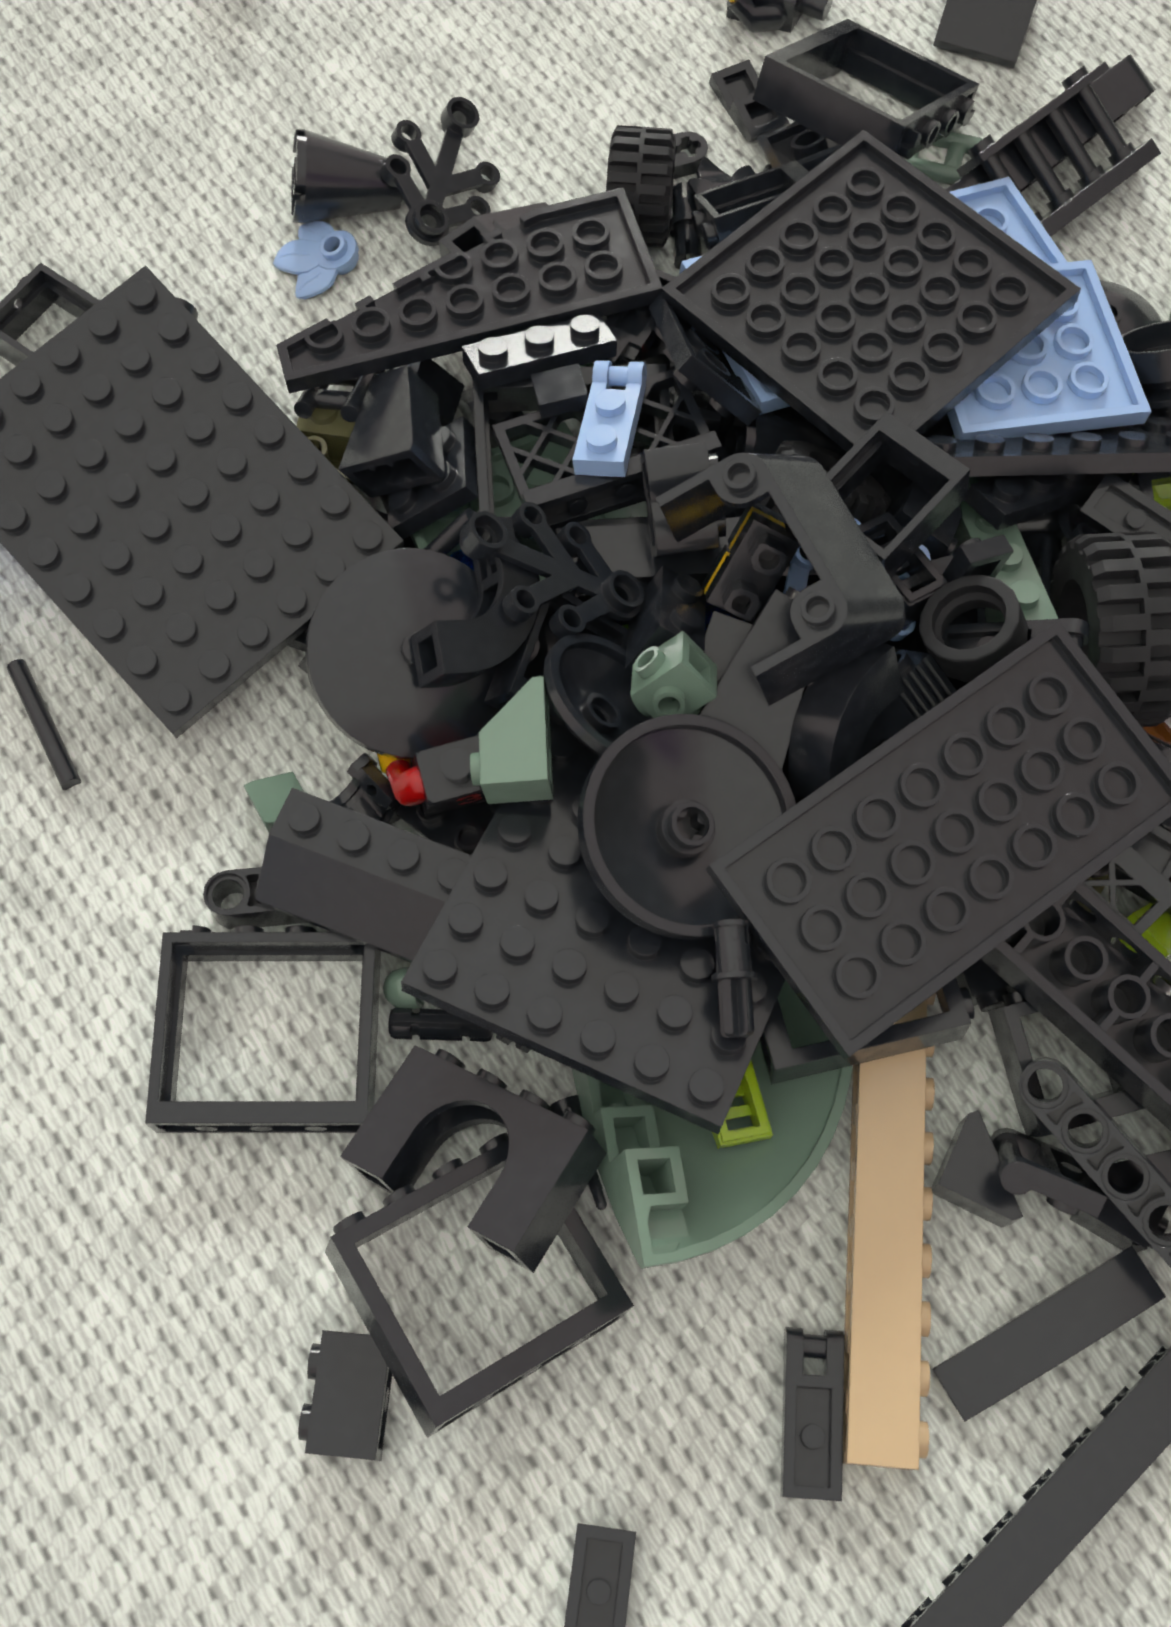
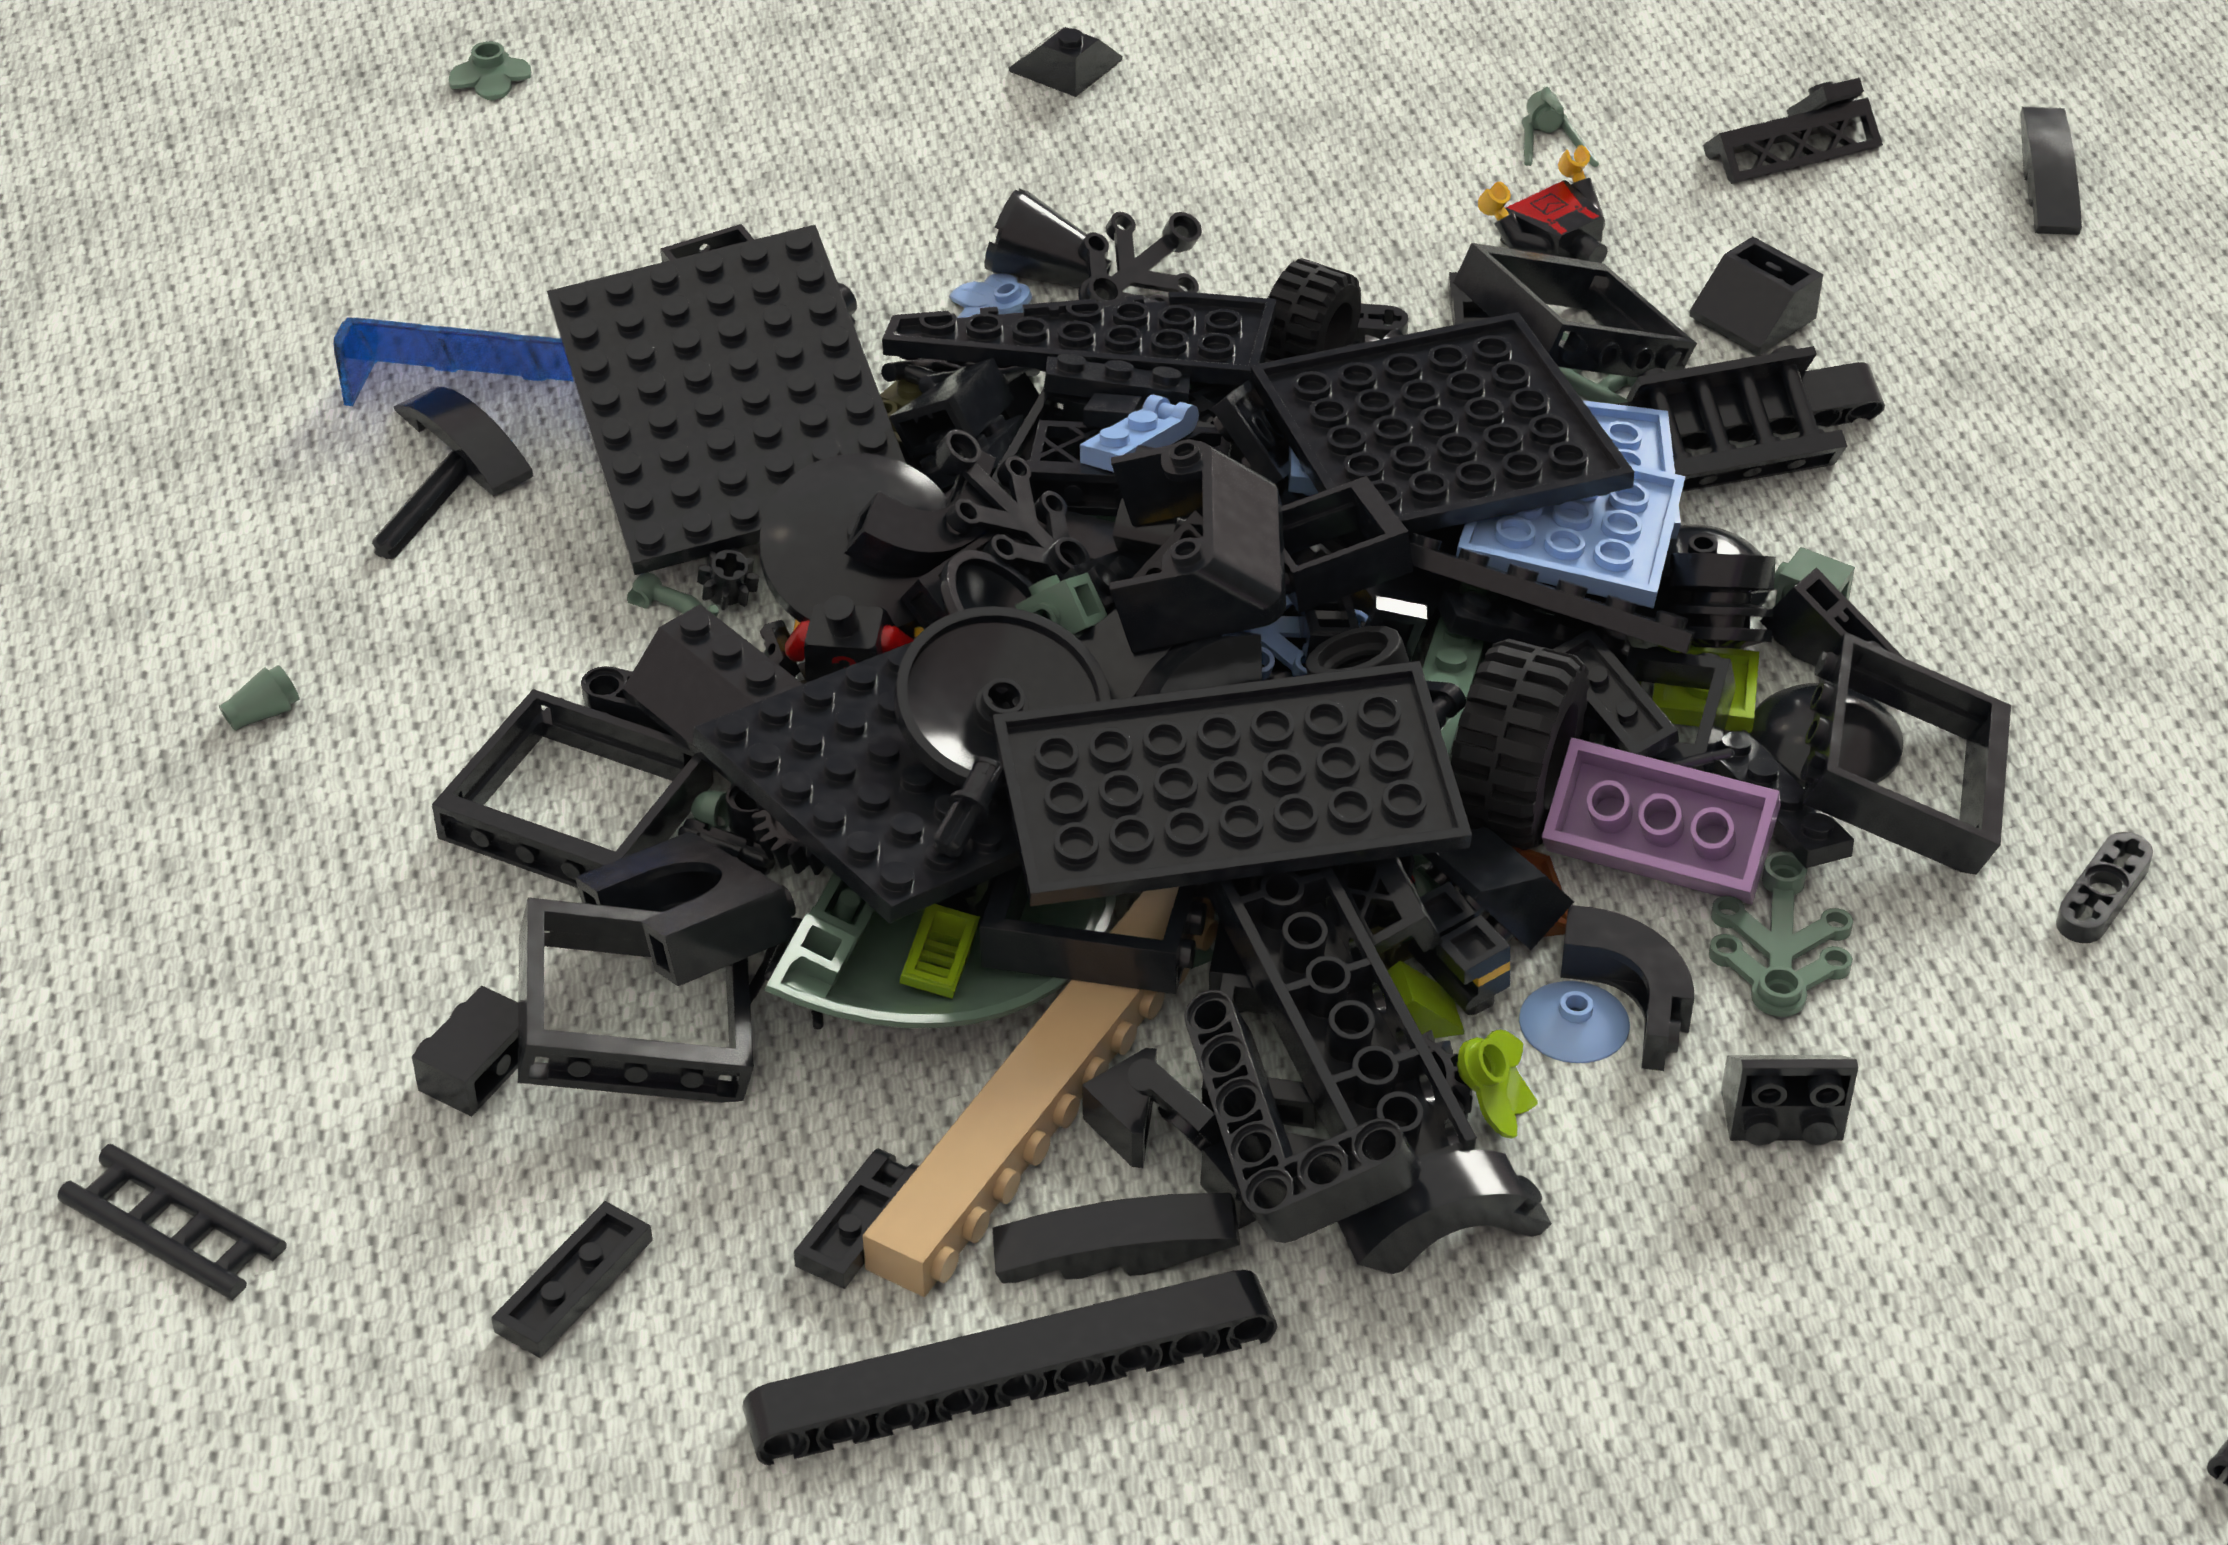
camera: 25 degrees right, 25 degrees down
(43, 724) = (532, 540): black bar -> none
(260, 755) = (650, 588): none -> sand green piece
(273, 691) = (728, 578): none -> black gear
(516, 749) = (894, 611): sand green slope -> none

